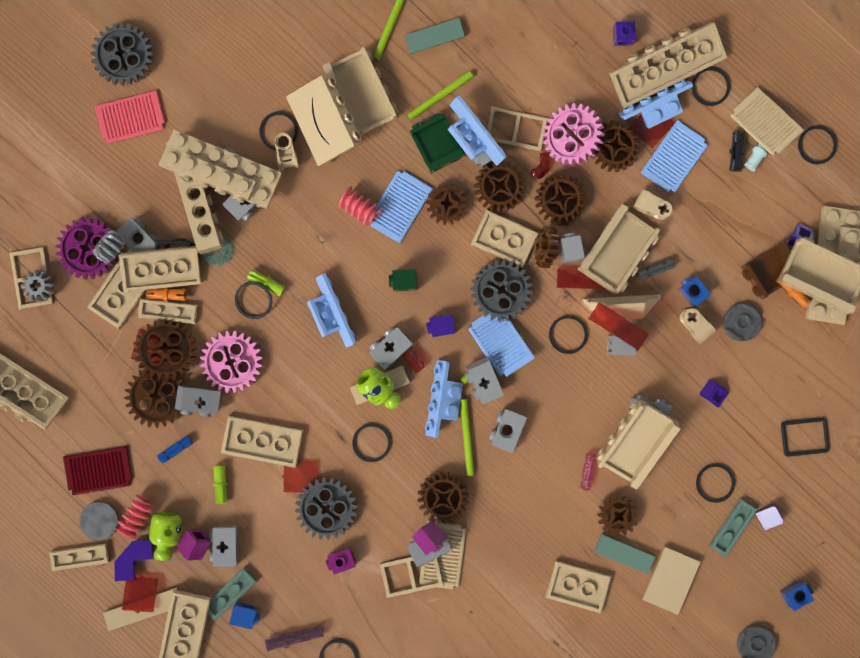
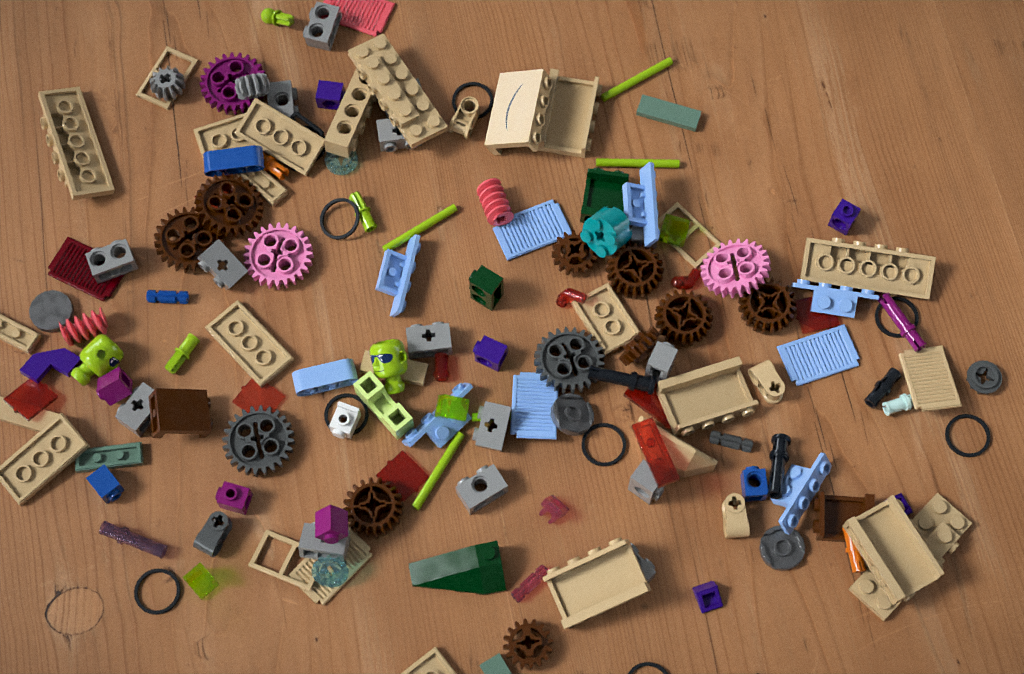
camera: 35 degrees right, 20 degrees down
(75, 168) = (276, 17): none -> lime axle
(117, 457) = (112, 266): none -> light grey brick
(123, 149) = (326, 26): none -> light grey brick
(140, 313) = (233, 160): none -> blue beam
(169, 205) = (329, 94): none -> dark purple brick
(258, 531) = (180, 412): none -> reddish brown panel
(317, 264) = (420, 228): none -> lime bar
(337, 428) = (324, 377): none -> light blue beam
(347, 597) = (212, 536): none -> dark grey piece
(364, 632) = (200, 581): none -> clear neon green panel
(377, 443) = (345, 429): none -> white brick
(395, 420) = (392, 415): none -> yellowish green arch
(443, 568) = (322, 575): none -> clear light blue gear
(444, 458) = (403, 474): none -> clear red piece
(448, 391) = (452, 407): none -> clear neon green panel
(462, 175) = (606, 231): none -> teal brick
(467, 240) = (570, 295): none -> clear red arm
(507, 134) = (674, 230): none -> clear neon green panel
(532, 330) = (572, 414): none -> flat silver tile
(540, 493) = (468, 570): none -> dark green wedge
(559, 277) = (632, 381): none -> black pin
(568, 407) = (554, 507): none -> clear pink tile
(699, 259) = (779, 458): none -> black pin
(727, 94) = (907, 329): none -> magenta pin
(727, 275) = (799, 489): none -> light blue bracket
(807, 84) = (993, 375): none -> dark grey gear

